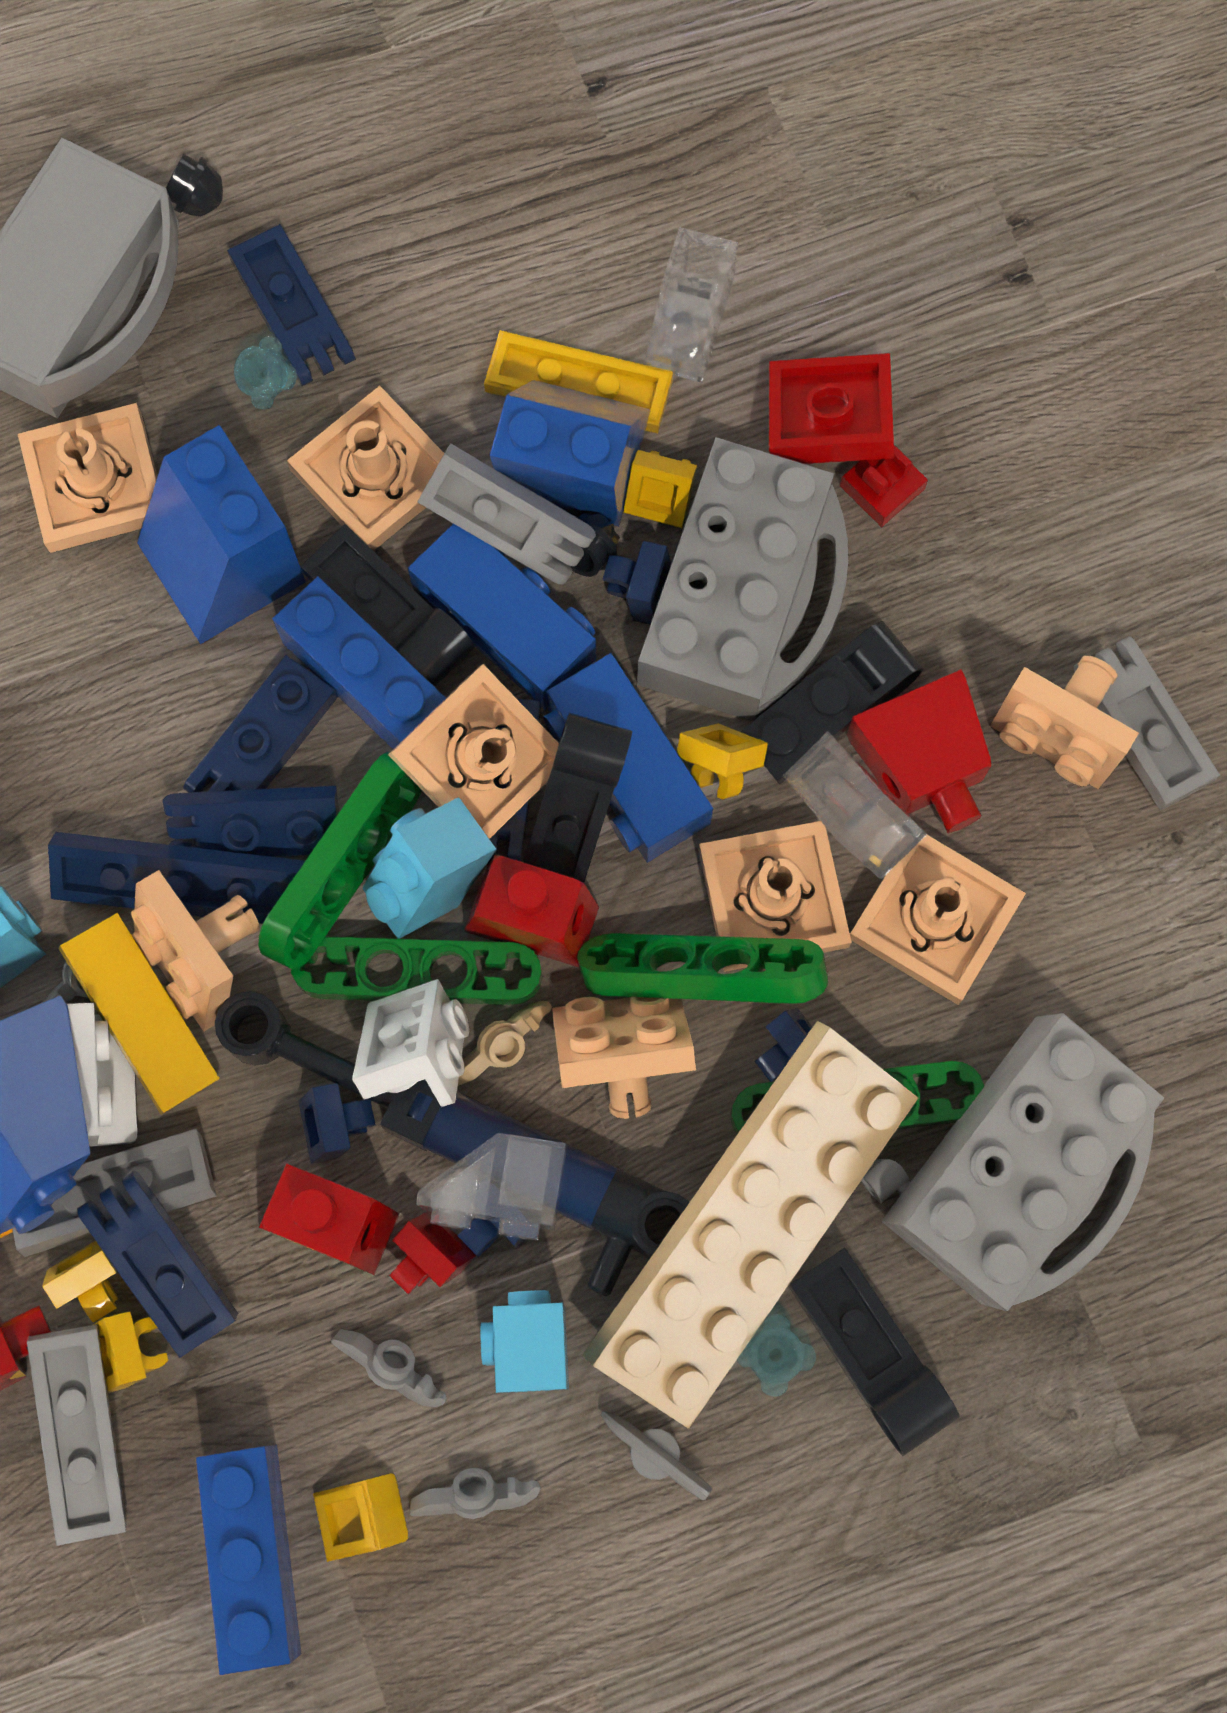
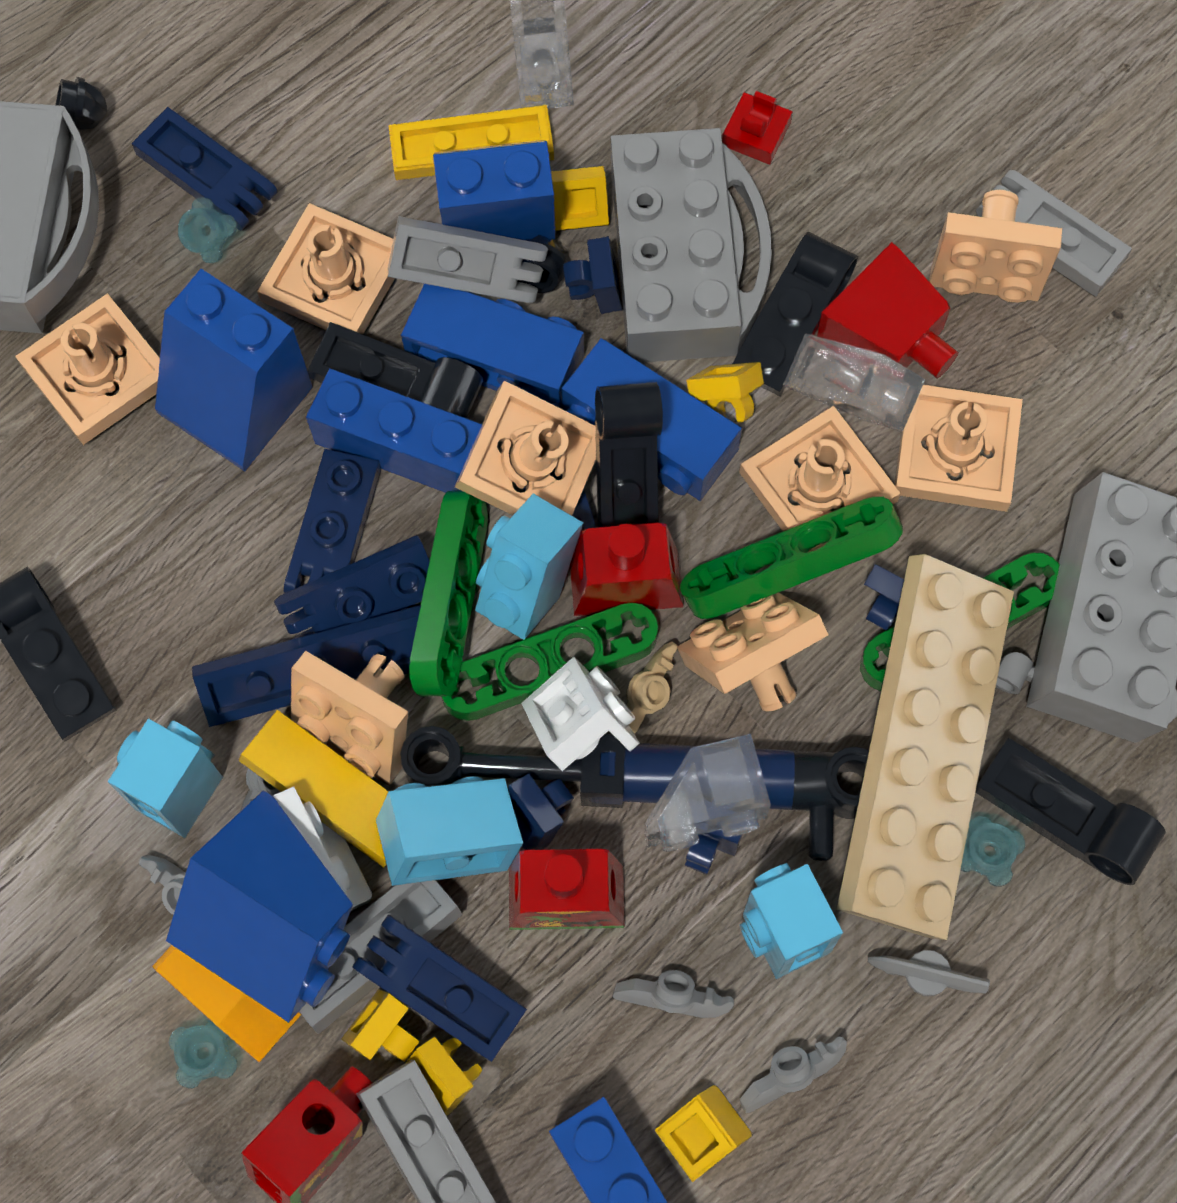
camera: 20 degrees left, 5 degrees down
(232, 1107) = (448, 830): none -> medium azure brick
(431, 1253) = (667, 883): red tile -> none
(831, 409) = (692, 82): red plate -> none

